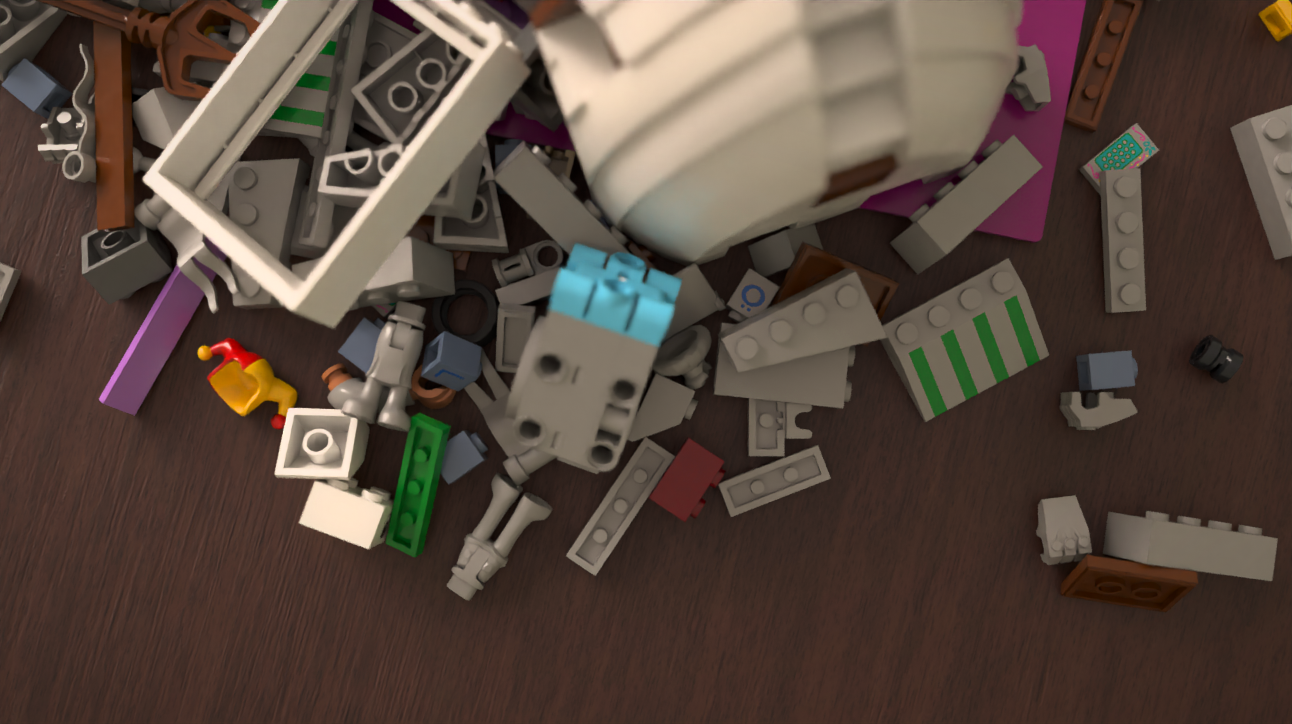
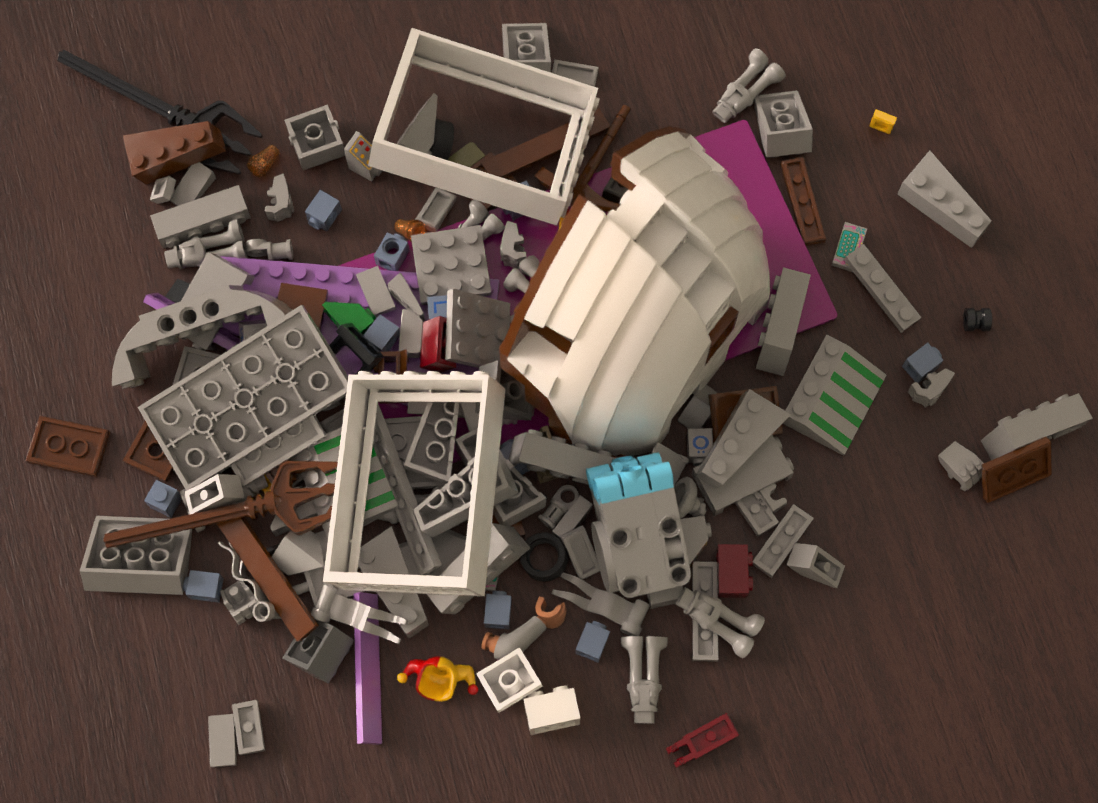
camera: 30 degrees left, 15 degrees down
(392, 367) = (524, 609): light grey piece -> none
(417, 484) = (581, 670): green plate -> none
(451, 361) = (554, 585): sand blue brick -> none
(517, 658) = (705, 739): none -> dark red hinge
(619, 511) = (707, 610): none -> light grey piece
(793, 536) = (815, 564): none -> light grey slope
(1031, 79) = (773, 234): light grey hand -> none

